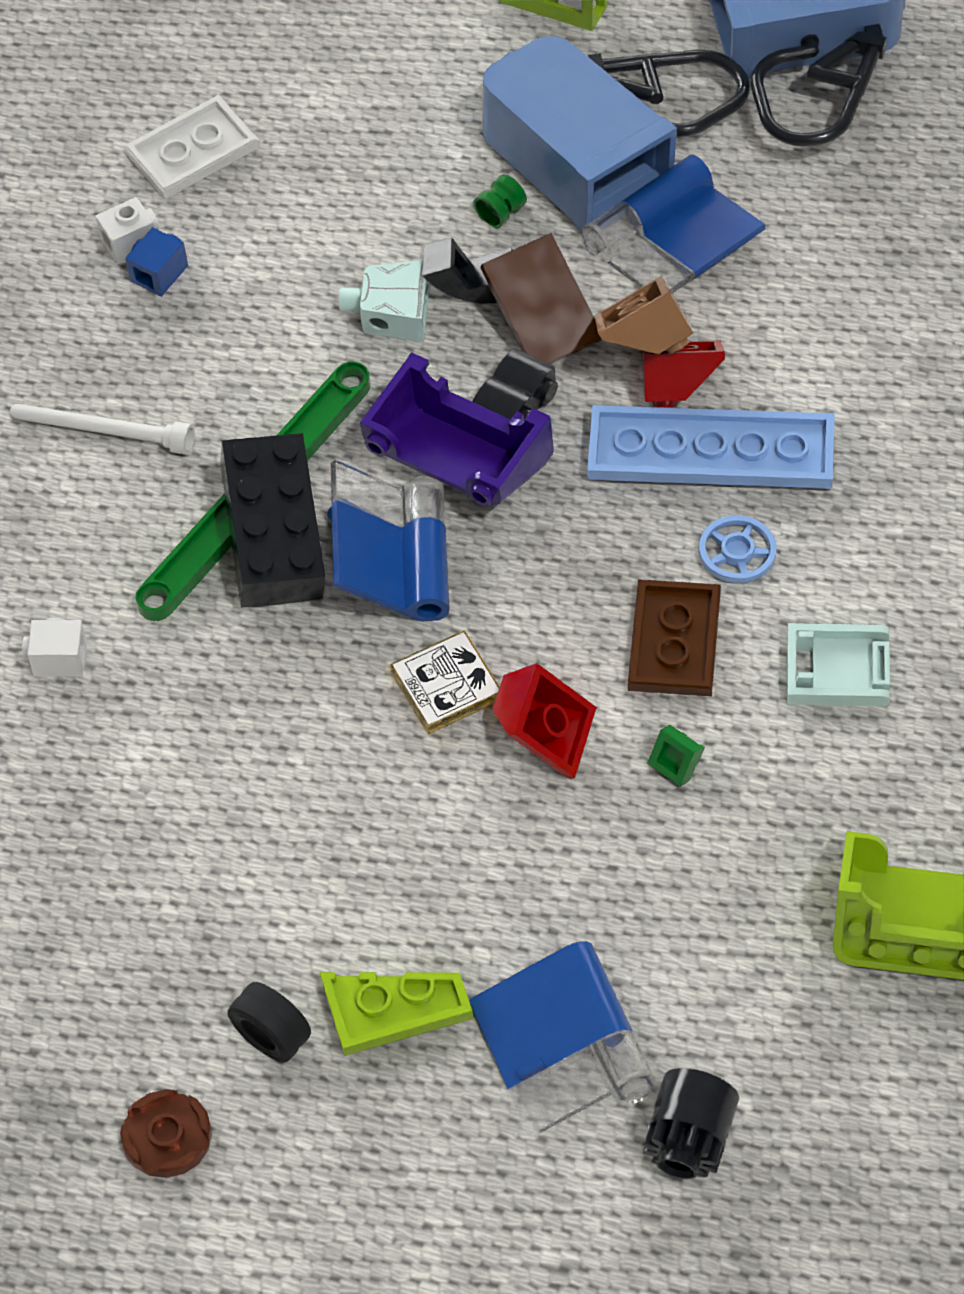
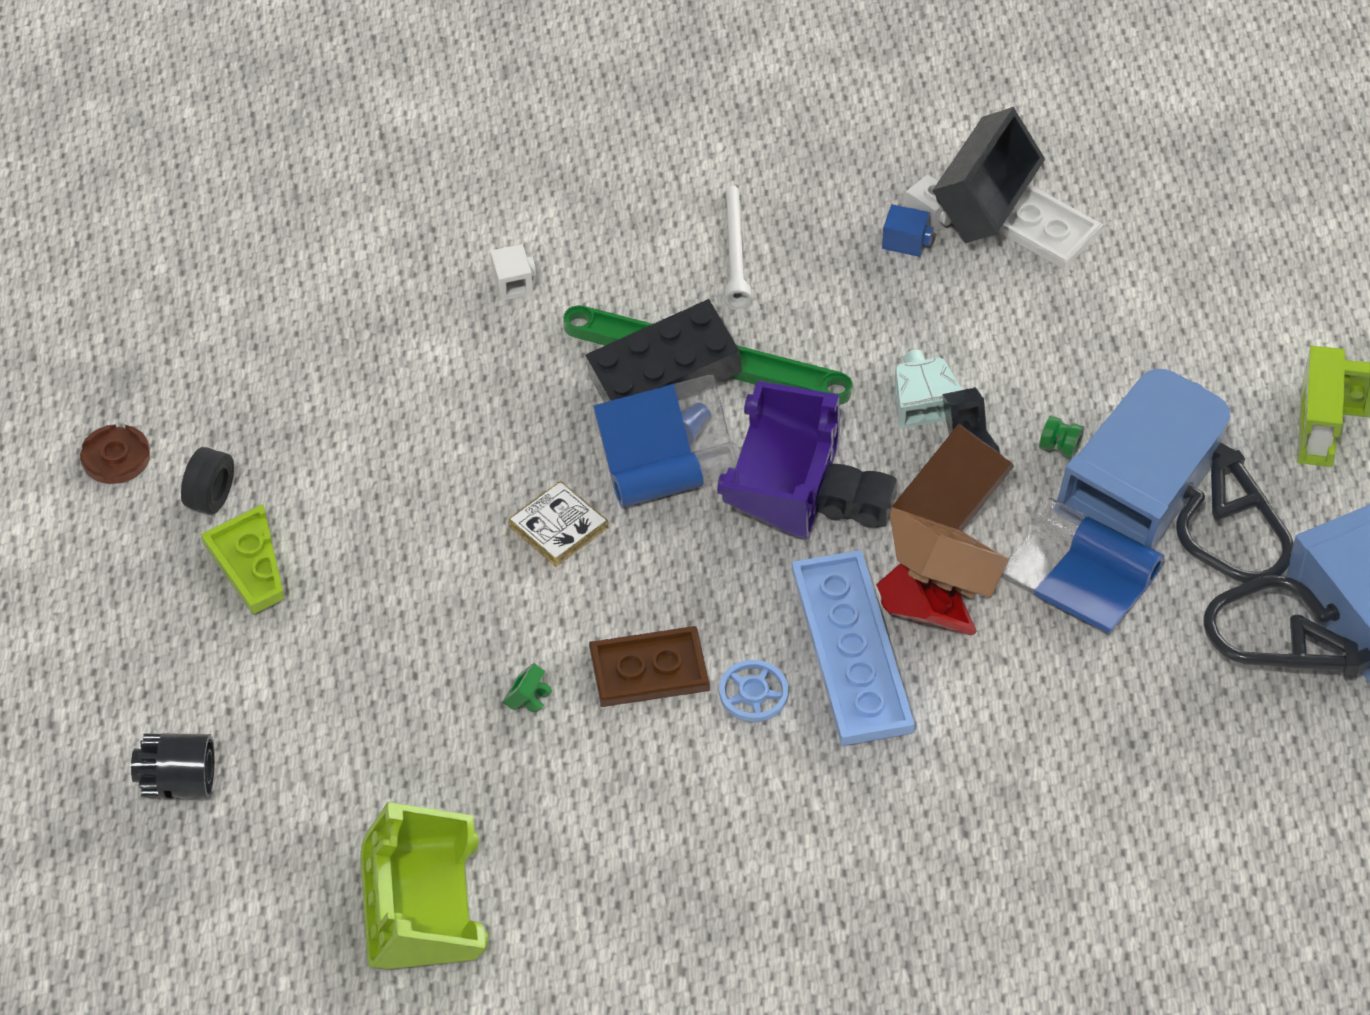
camera: 70 degrees right, 5 degrees down
(131, 158) = (989, 175): none -> black piece
(545, 716) = (528, 591): red slope -> none
(562, 1038) = (245, 674): blue door -> none
(848, 665) = (656, 795): light aqua container -> none

